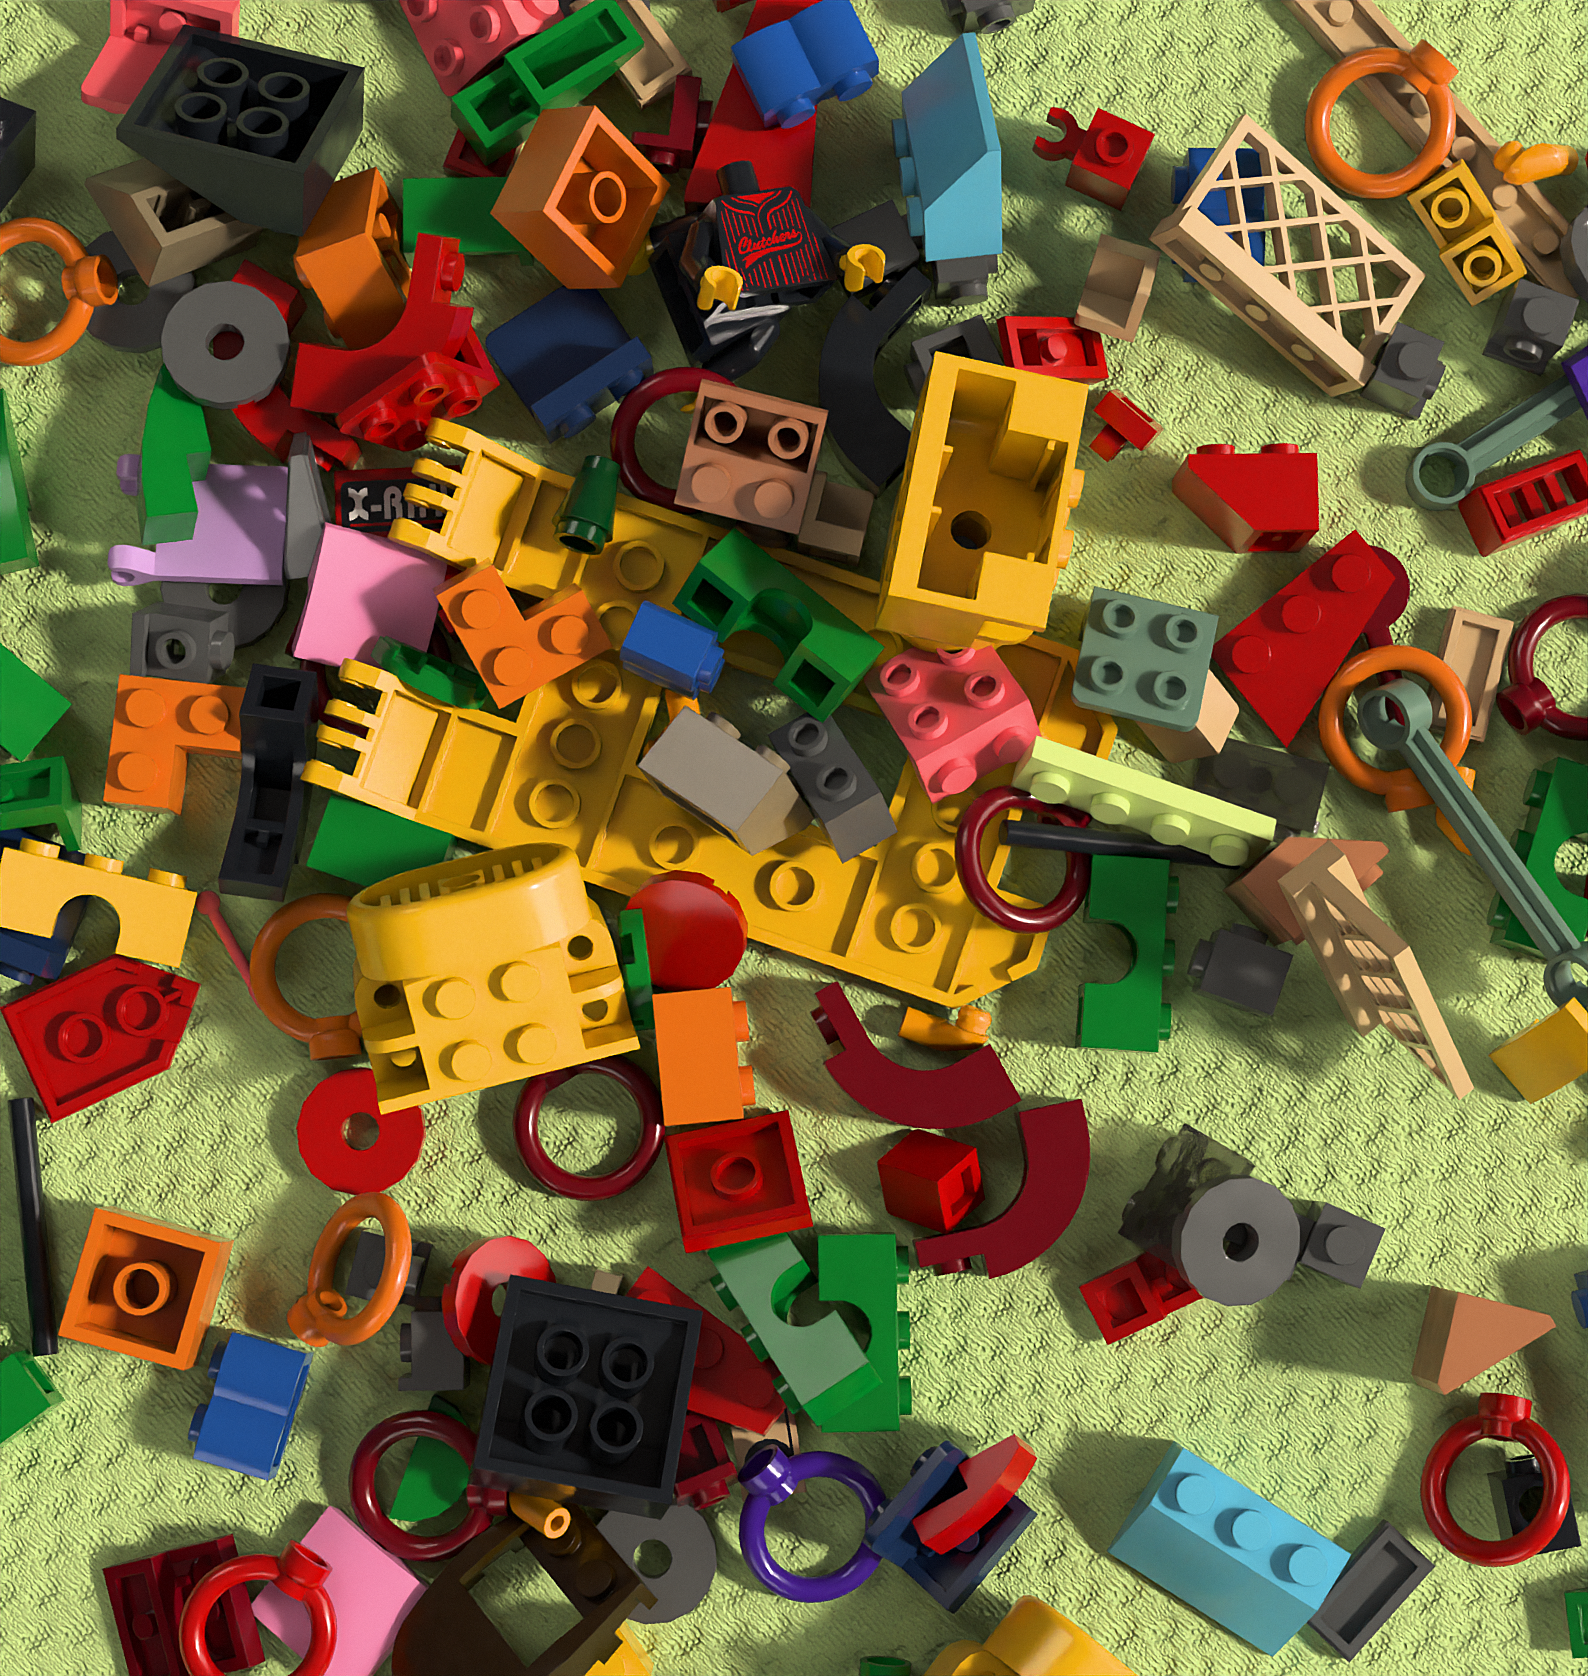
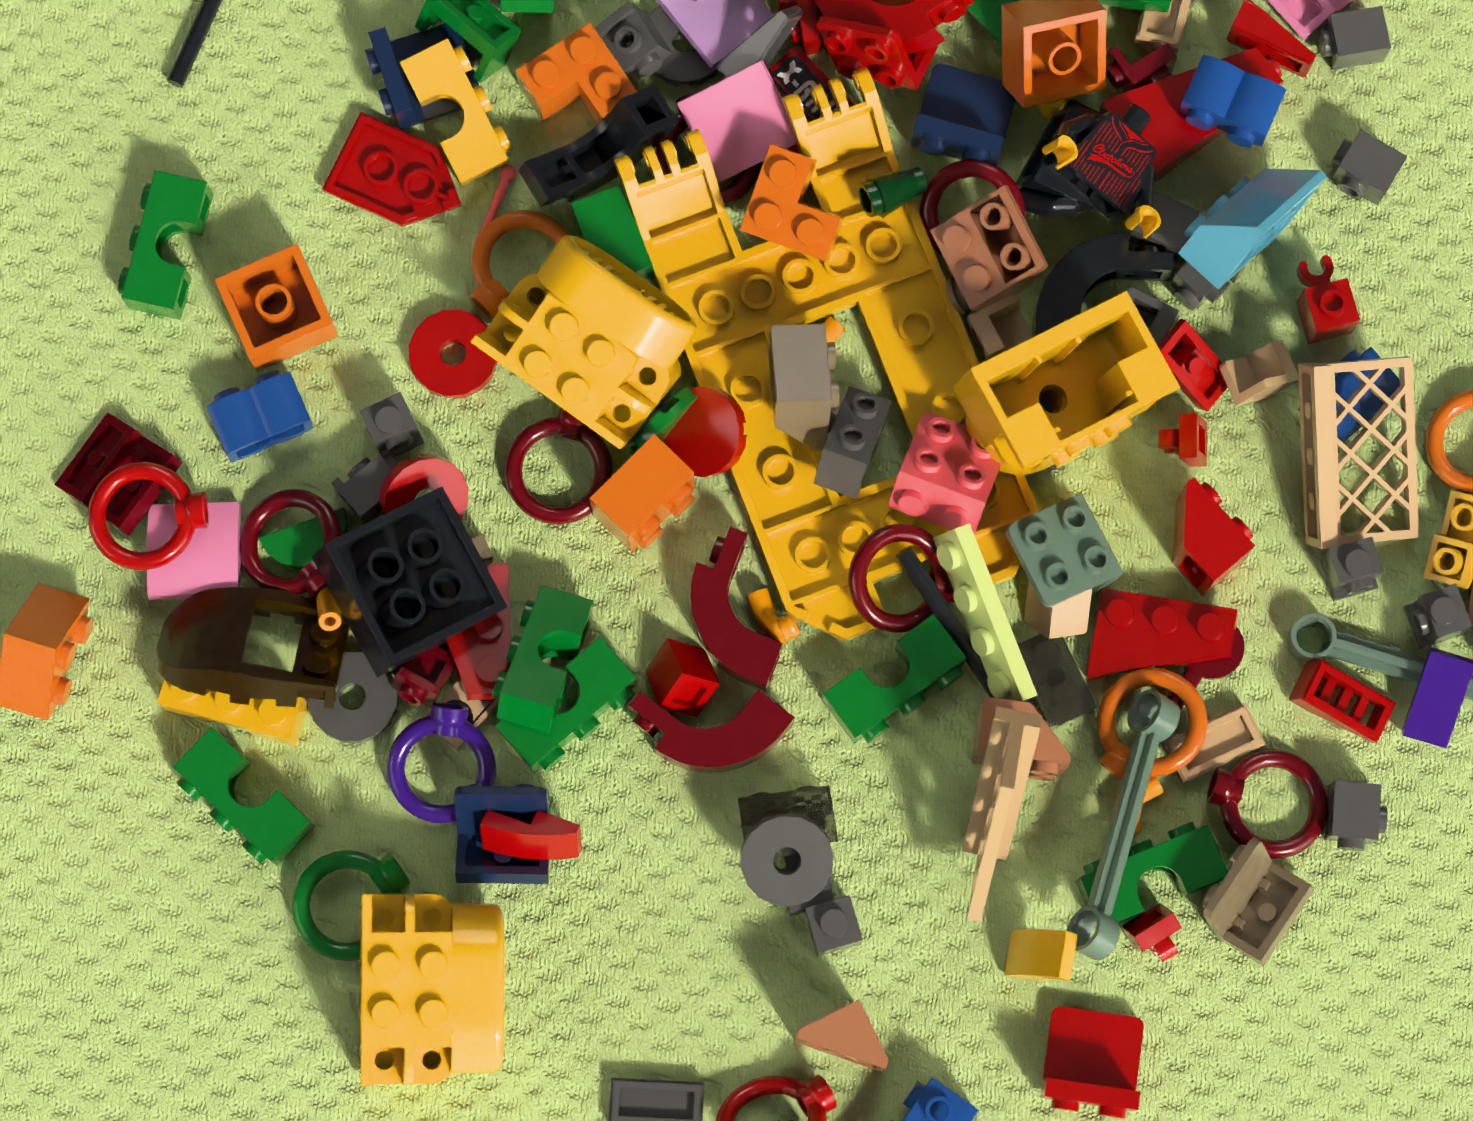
camera: 55 degrees right, 5 degrees down
(33, 1226) = (258, 226): black bar -> none
(319, 1314) = (339, 412): orange piece -> none
(431, 674) = (728, 182): green tile -> none
(672, 651) = (848, 294): blue brick -> none
(737, 1181) = (593, 571): red tile -> none
(749, 590) = (917, 307): green arch -> none
(1135, 1296) = (712, 842): red slope -> none
(1228, 1551) = (614, 1004): medium azure slope -> none
(1240, 969) = (940, 749): dark grey brick -> none

